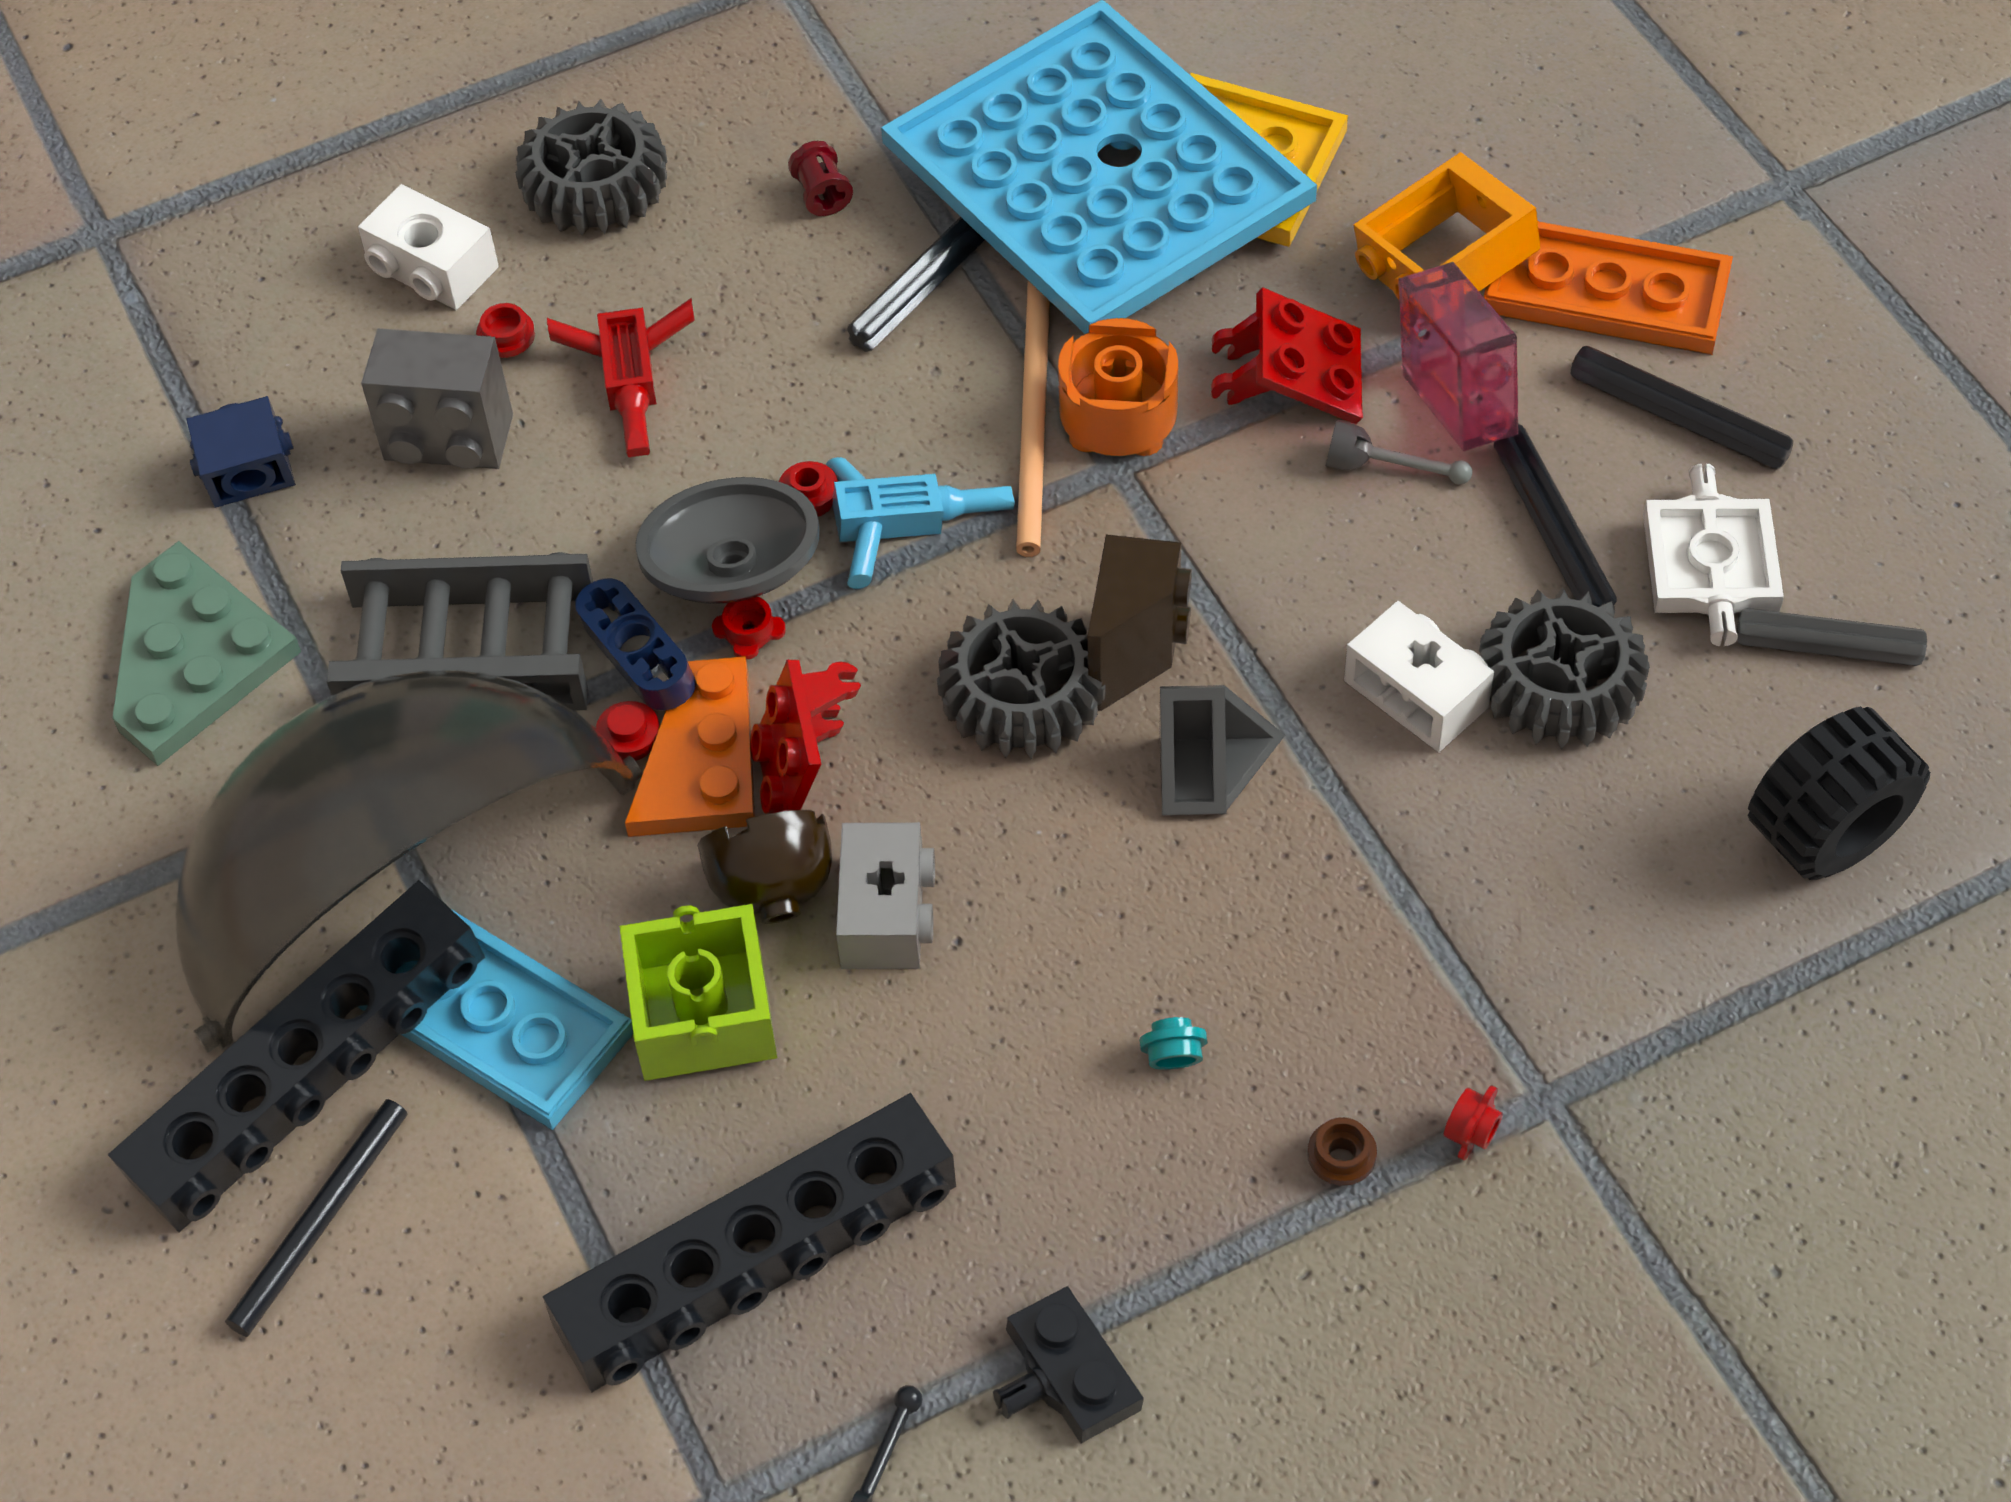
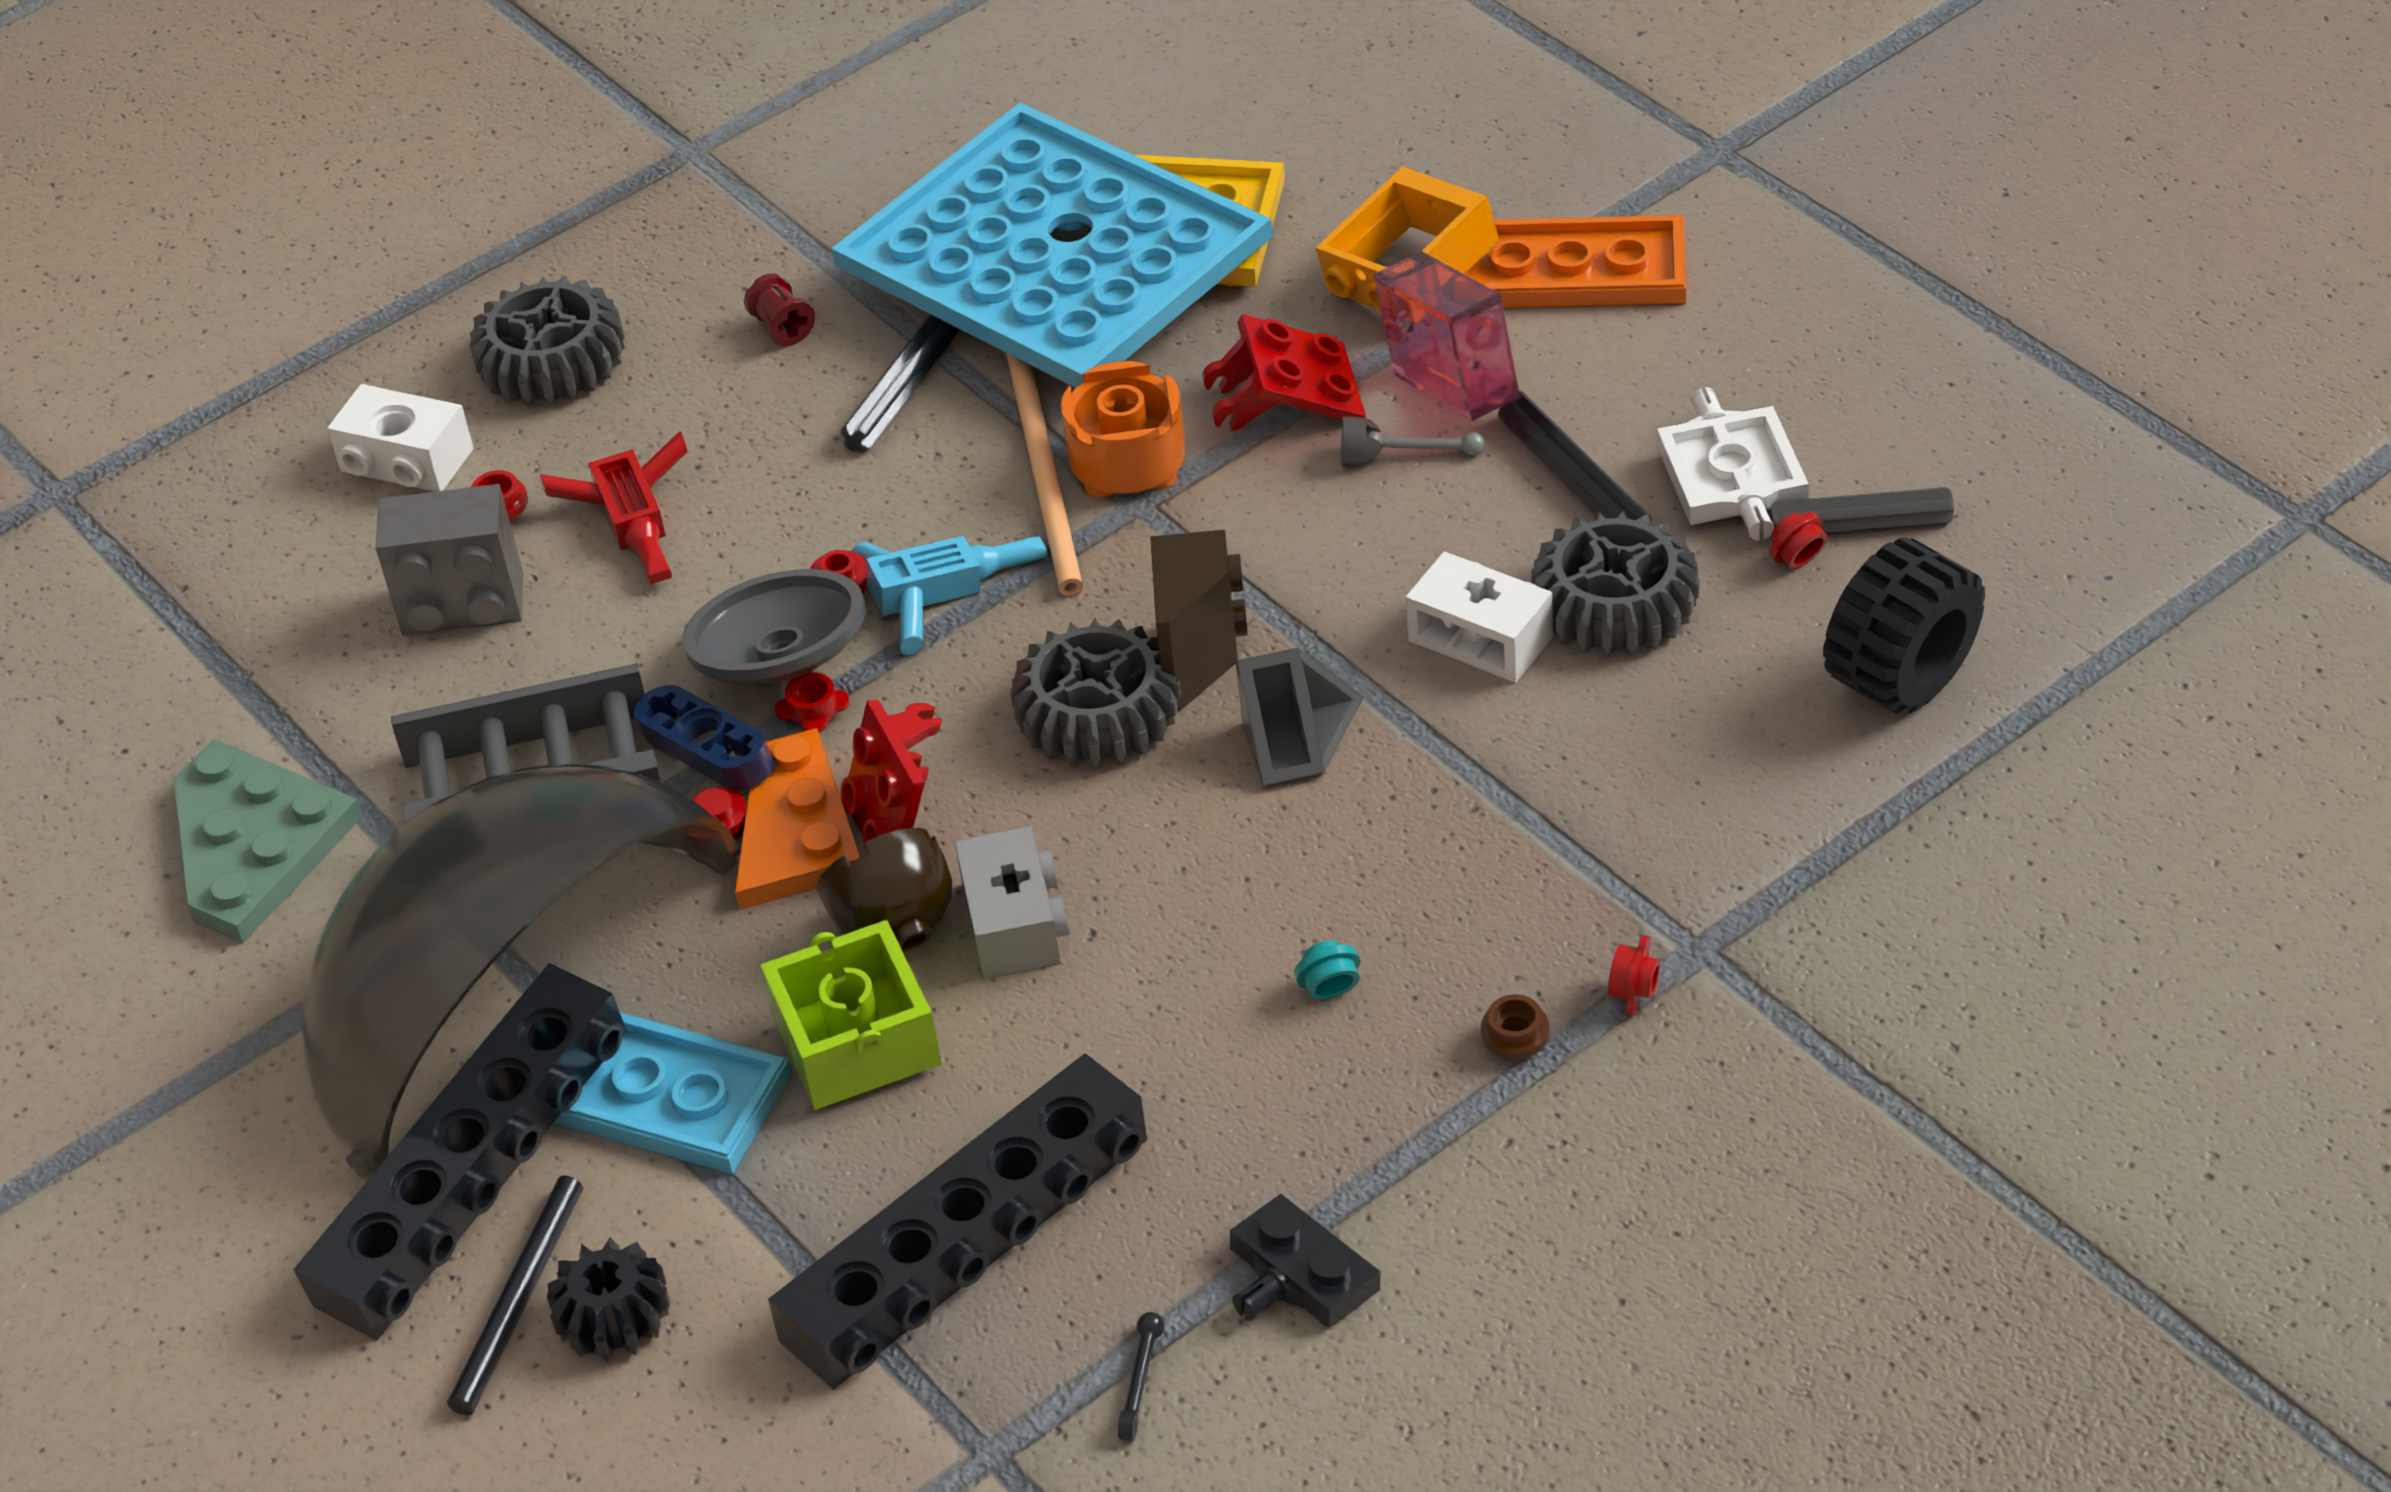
camera: 10 degrees left, 10 degrees down
(240, 451) = (258, 648): dark blue head -> none
(371, 1246) = (608, 1299): none -> black gear
(1682, 407) = (1669, 349): black axle -> none
(1758, 656) = (1797, 539): none -> red plate

